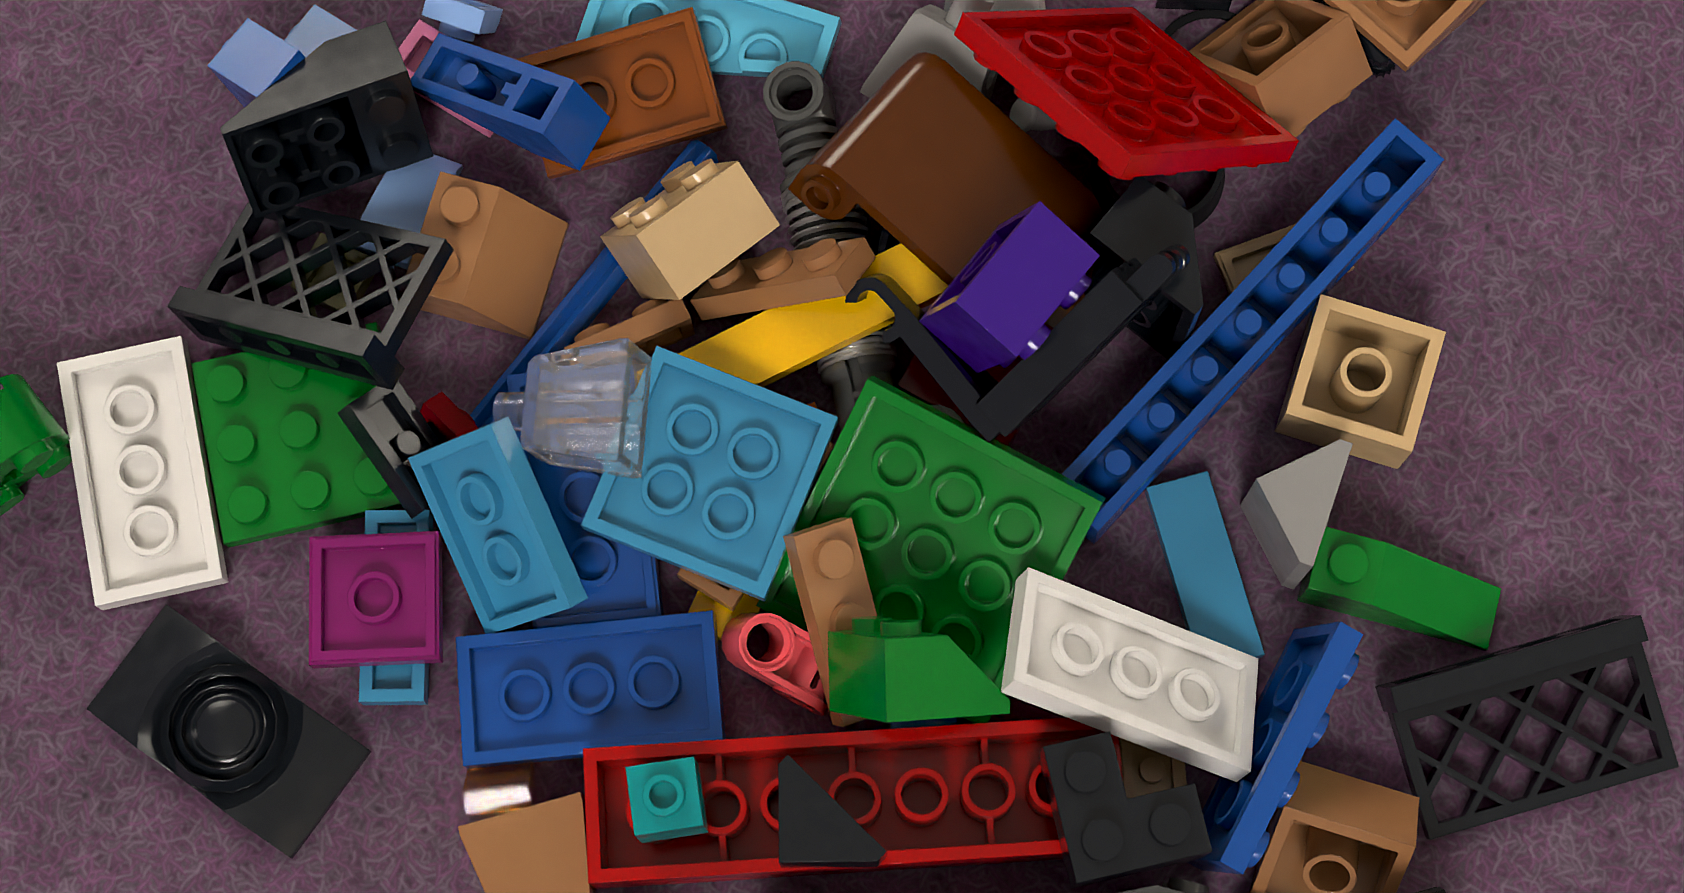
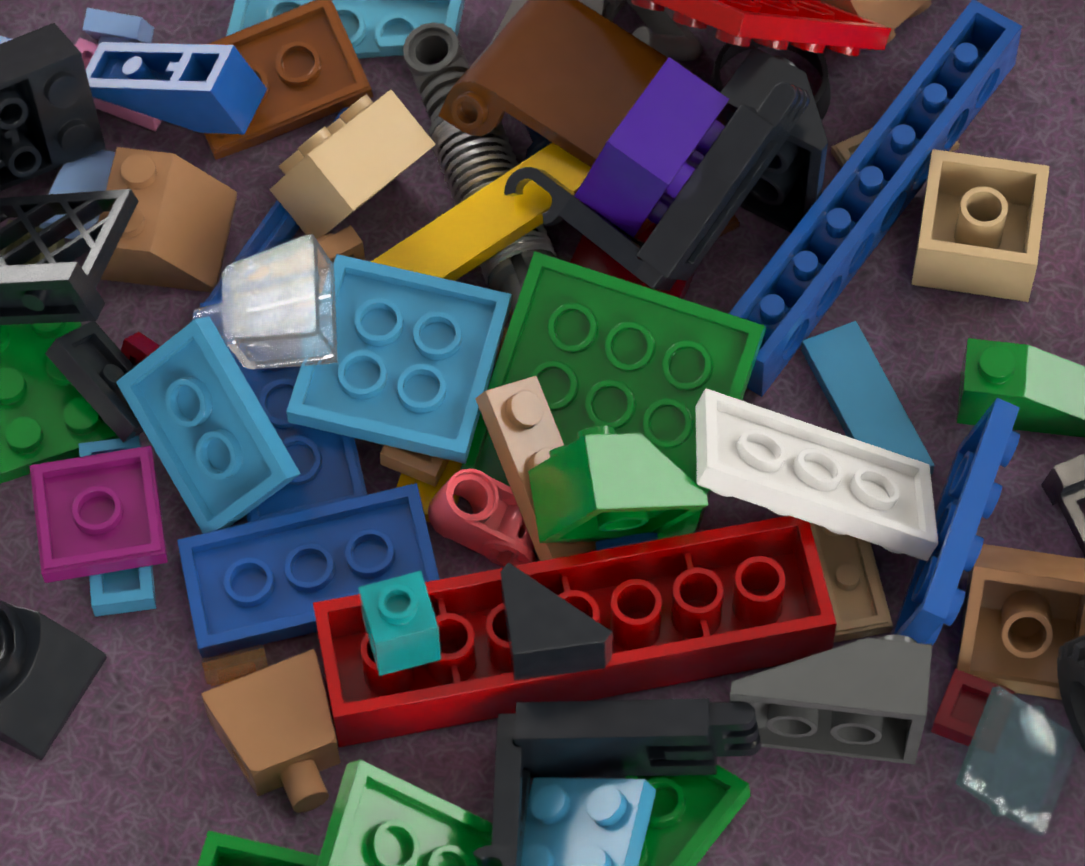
camera: 10 degrees left, 15 degrees down
(784, 278) = (442, 192): medium nougat plate -> none
(1103, 830) = (819, 597): black brick -> none
(1293, 507) = (935, 327): light grey slope -> none

